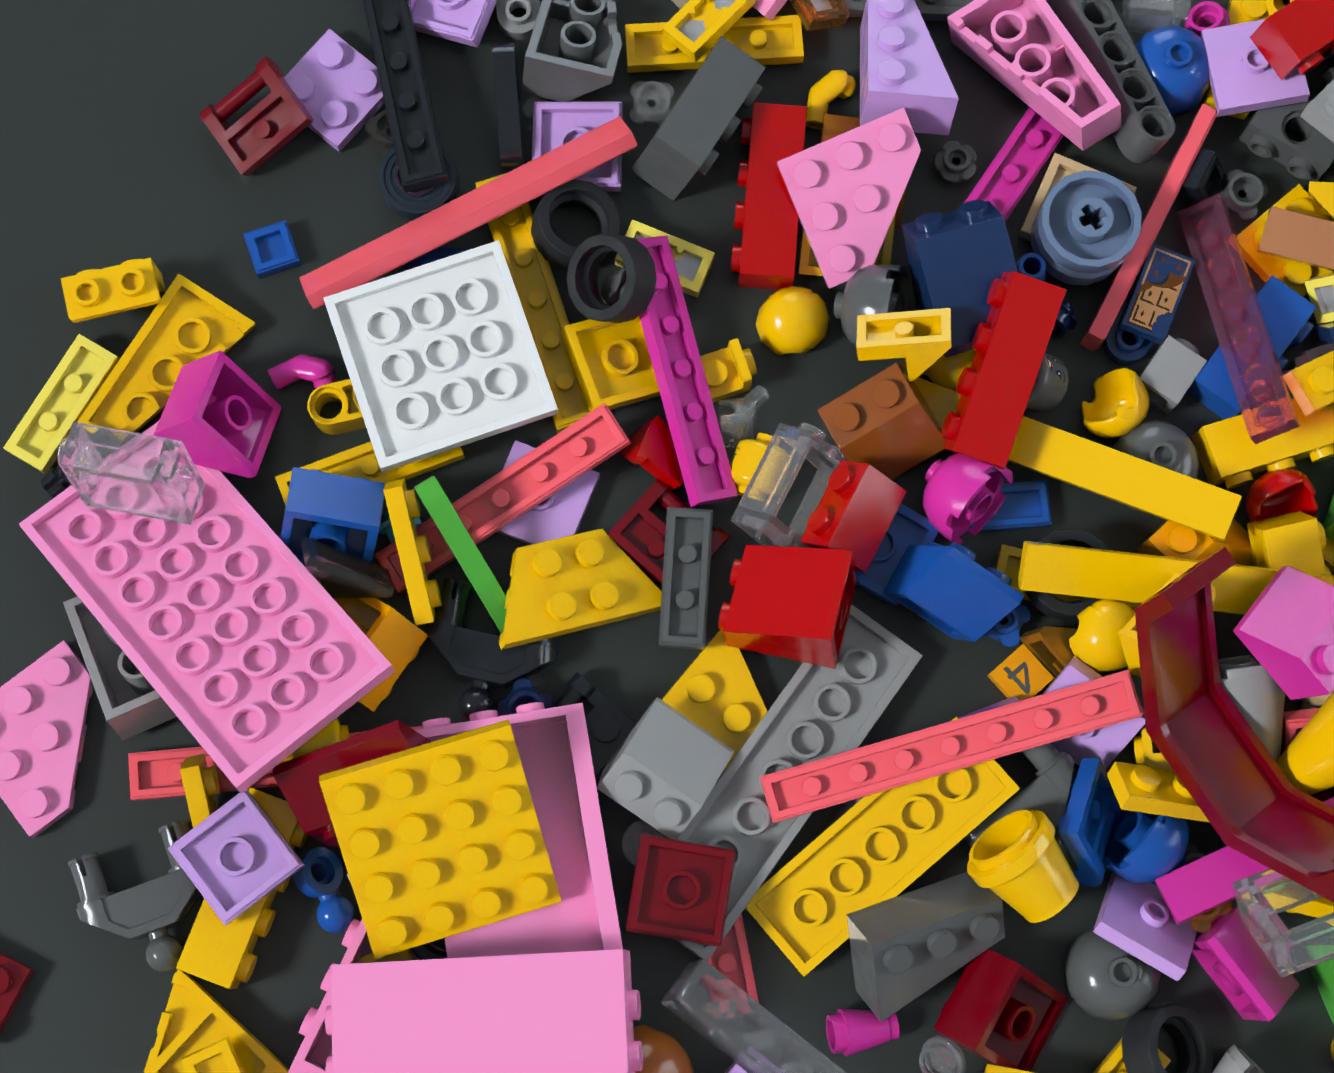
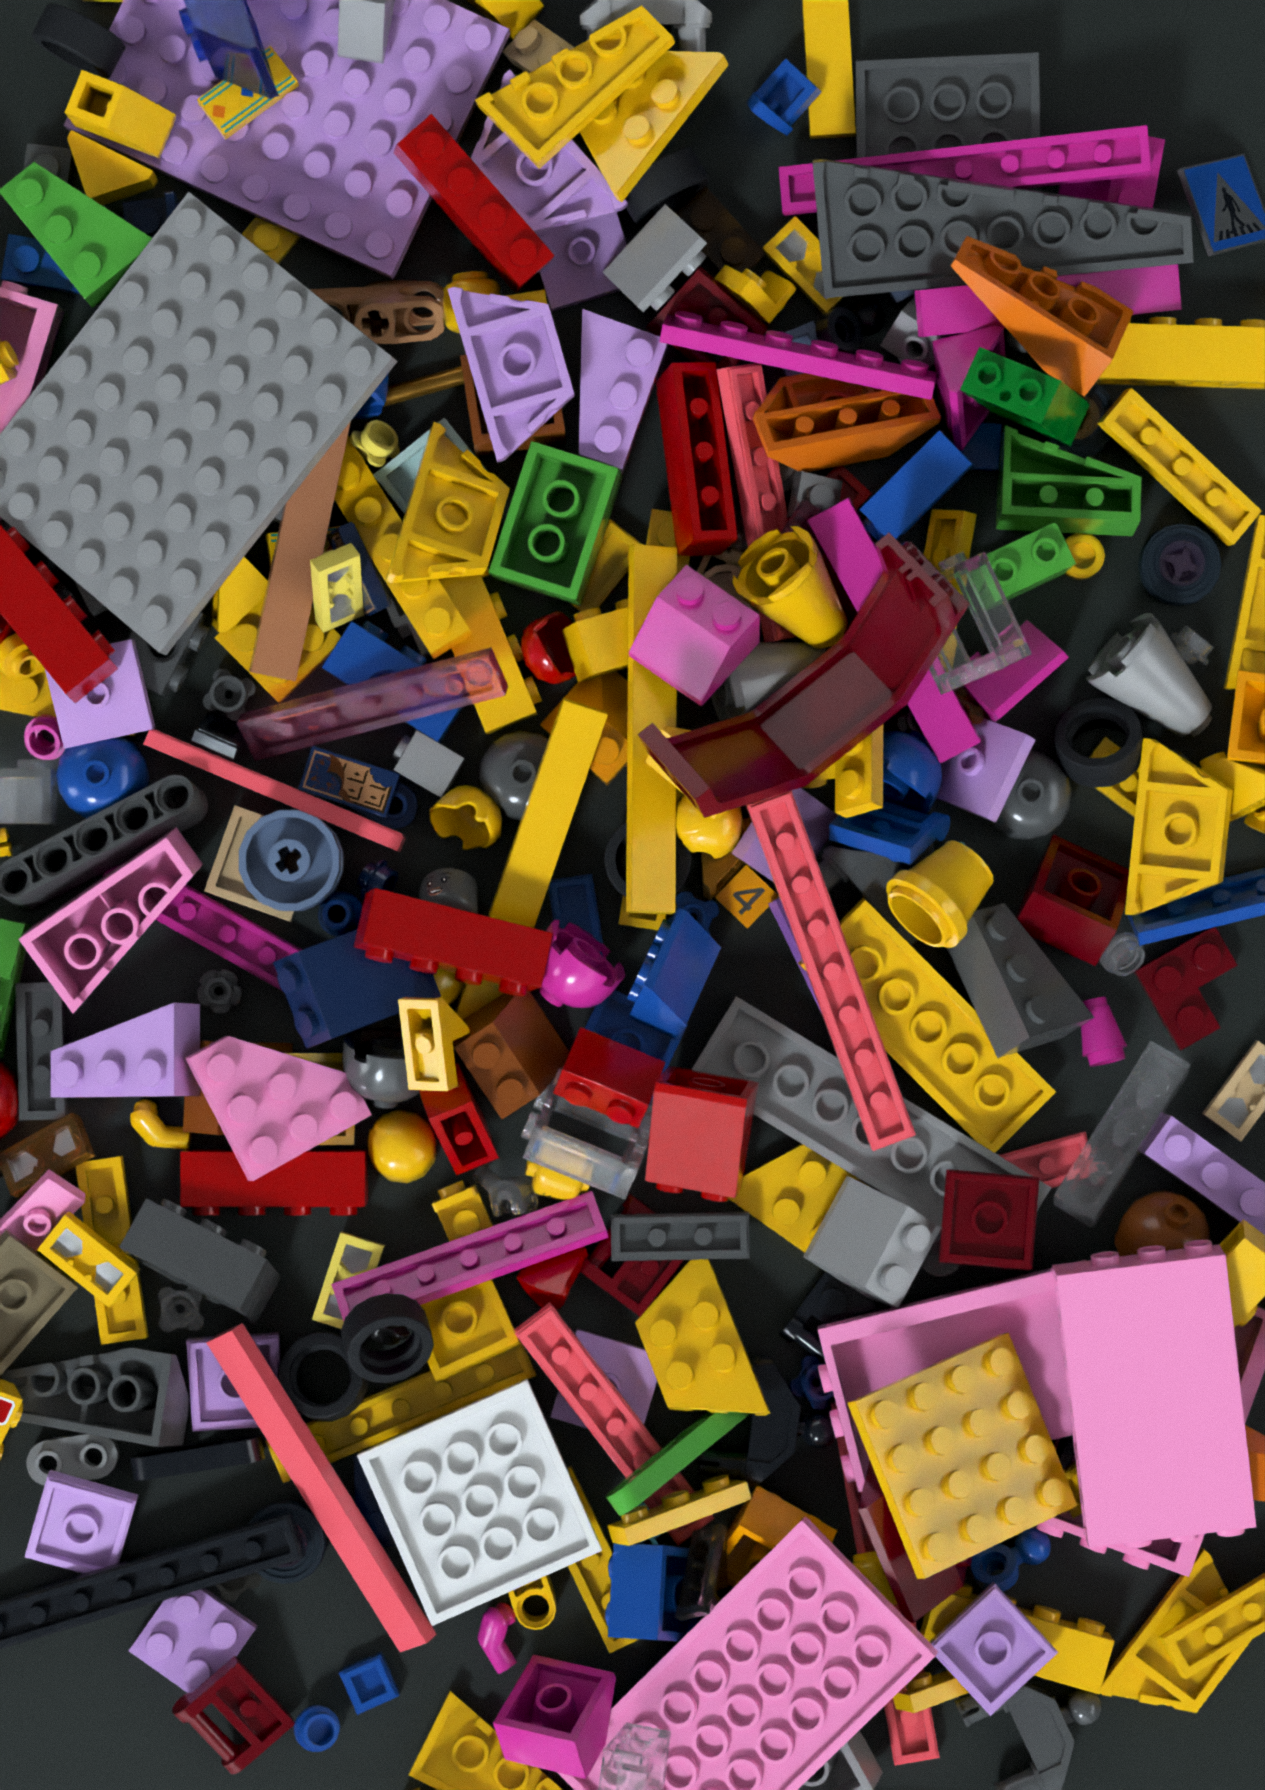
camera: 90 degrees left, 10 degrees up
(234, 195) = (316, 1728): none -> blue plate
(817, 368) = (460, 1125): none -> red brick

